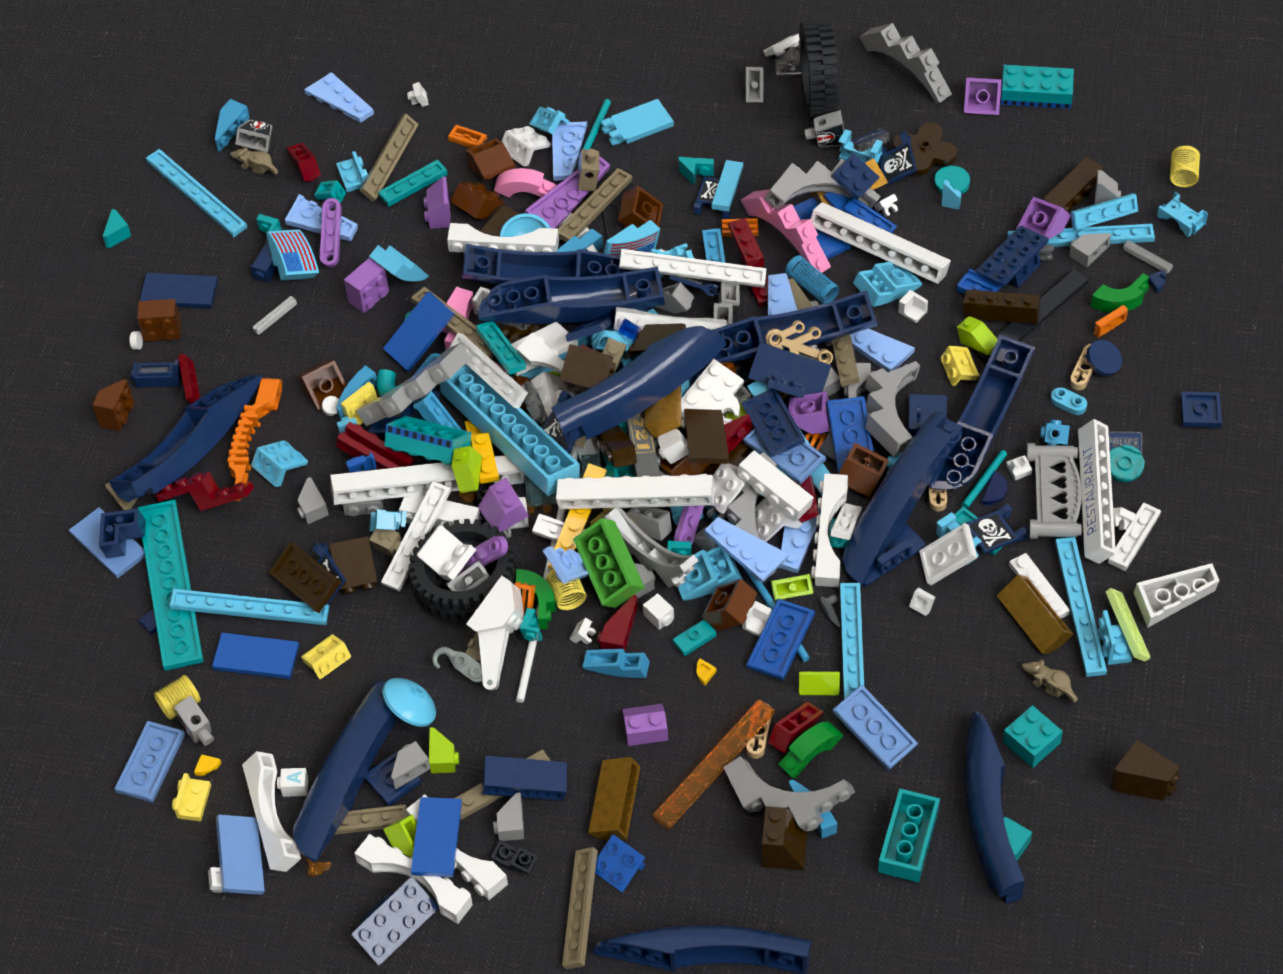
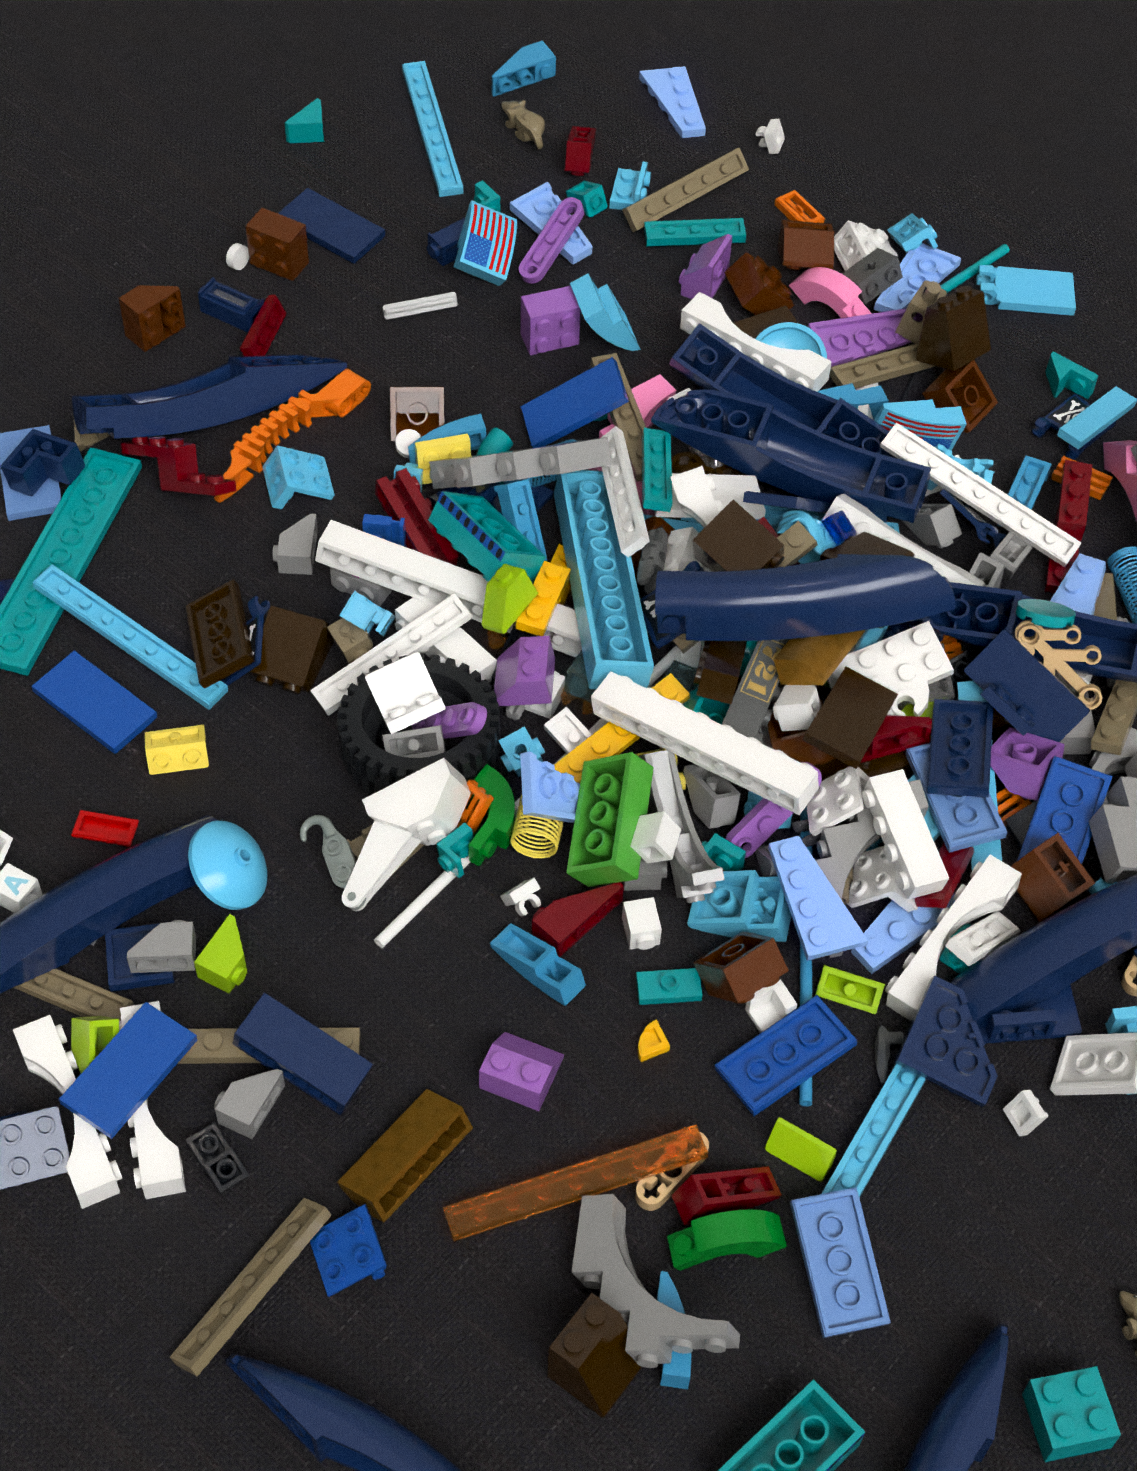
camera: 25 degrees right, 0 degrees up
(254, 135) = (541, 92): light grey torso -> none
(318, 722) = (105, 828): none -> red tile
(525, 547) = (518, 743): none -> medium azure brick
(542, 157) = (874, 274): none -> dark grey brick
(618, 174) = (954, 330): none -> dark brown slope
(641, 558) = (656, 837): none -> white brick
(777, 321) = (1045, 613): none -> teal tile
(862, 587) = (948, 1045): none -> dark blue plate

